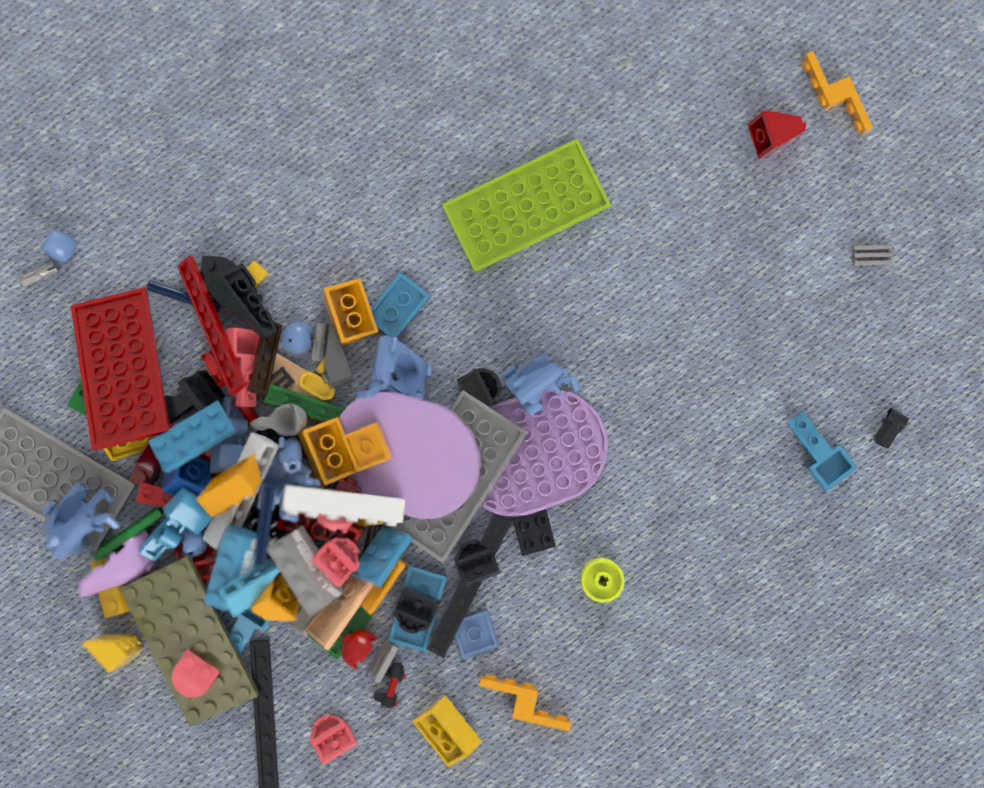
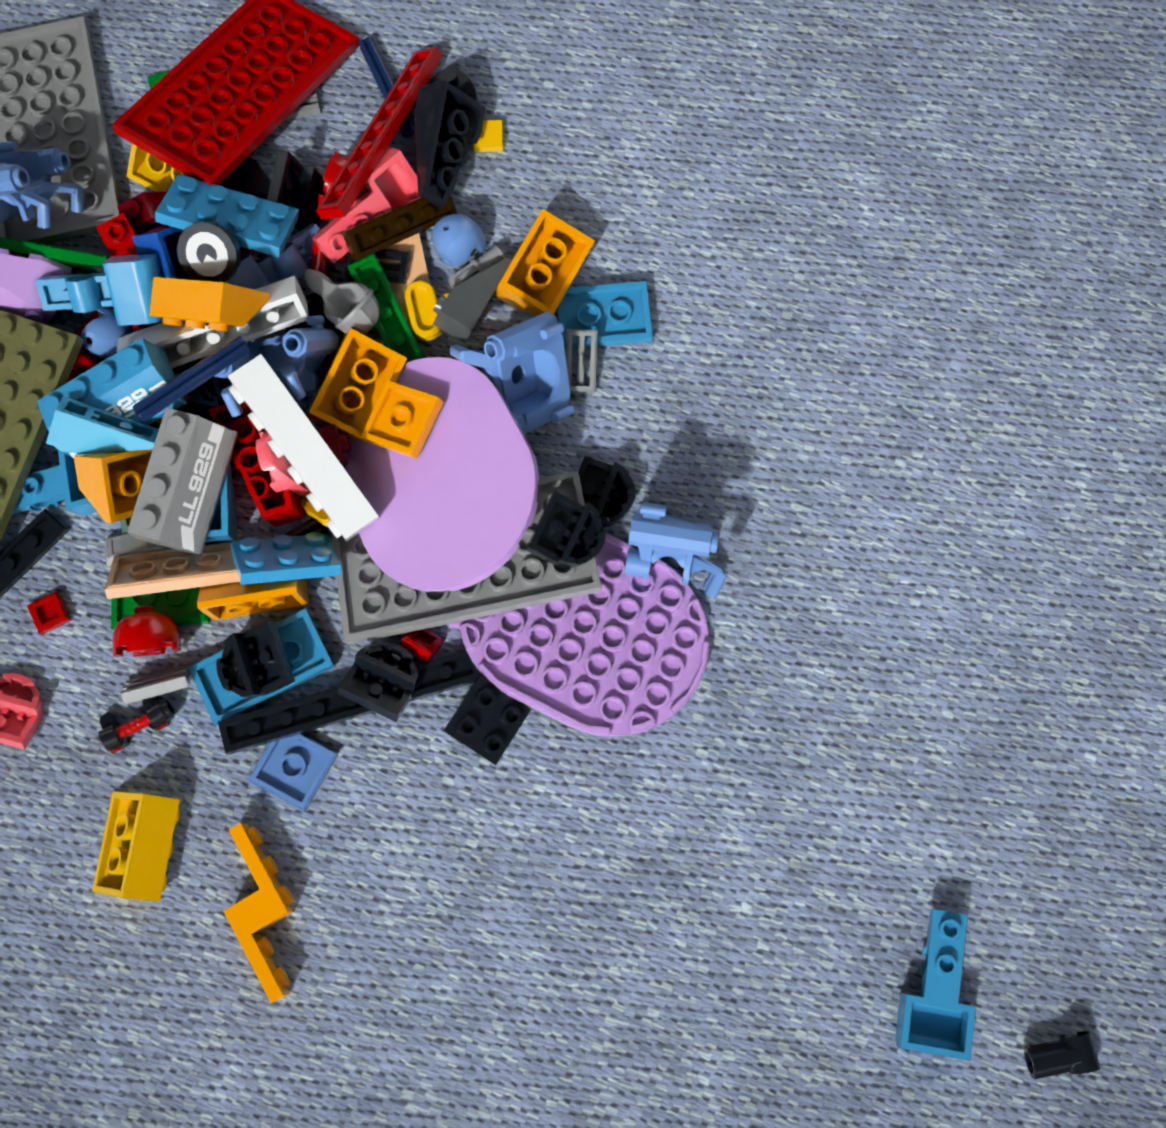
camera: 45 degrees right, 10 degrees down
(206, 463) = (208, 252): none -> black tile
(302, 680) = (49, 612): none -> red tile
(337, 560) = (230, 507): coral slope -> none
(410, 327) = (580, 370): none -> light grey tile
(474, 530) = (422, 643): none -> red tile
(489, 423) = (567, 533): none -> black slope
(526, 205) = (867, 349): lime plate -> none
(610, 587) = (486, 856): neon yellow wheel -> none

